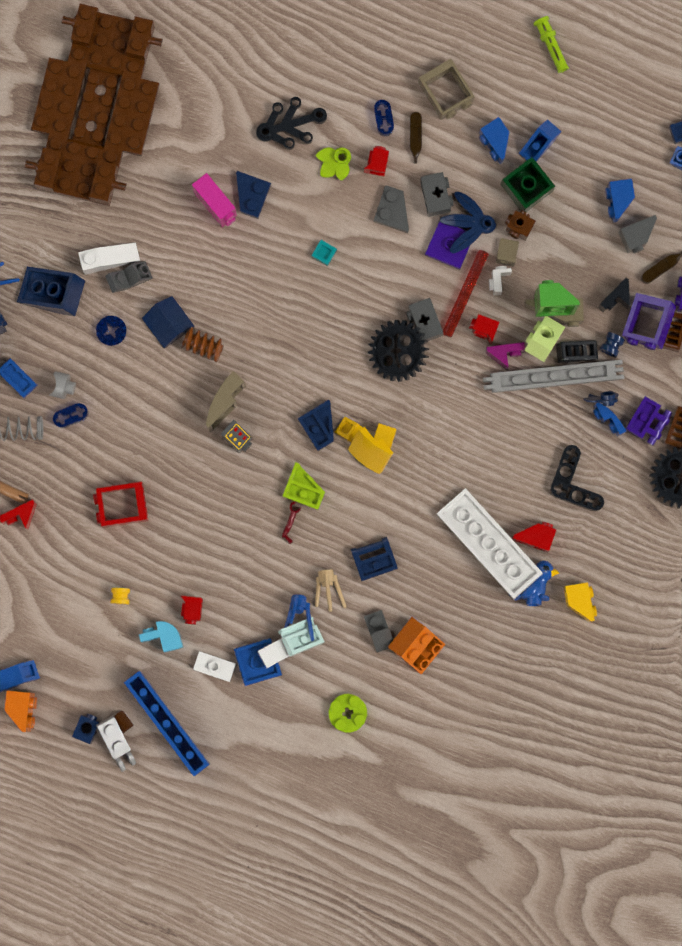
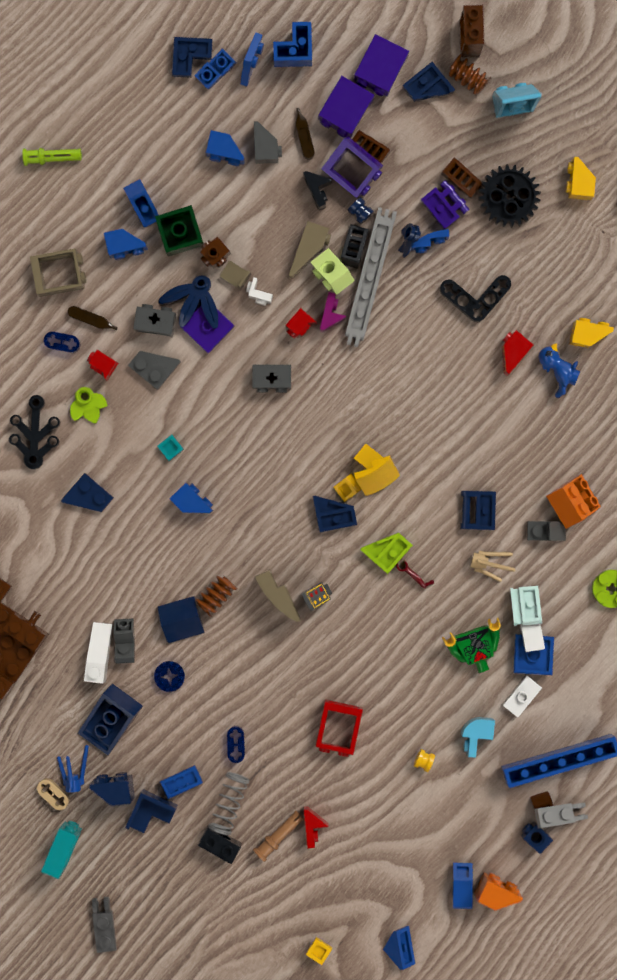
camera: 65 degrees left, 5 degrees up
(63, 385) = (205, 741): light grey piece -> none
(191, 609) = (461, 698): red window -> none
(214, 200) = (82, 532): dark pink brick -> none
(246, 603) = (475, 645): none -> torso
(281, 287) = (189, 501): none -> blue slope
(298, 605) = (495, 599): blue plant -> none
(414, 349) = (297, 397): black gear -> none
(465, 293) = (259, 329): clear red axle -> none
(489, 543) = (505, 397): white plate -> none
(554, 300) = (301, 248): bright green slope -> none

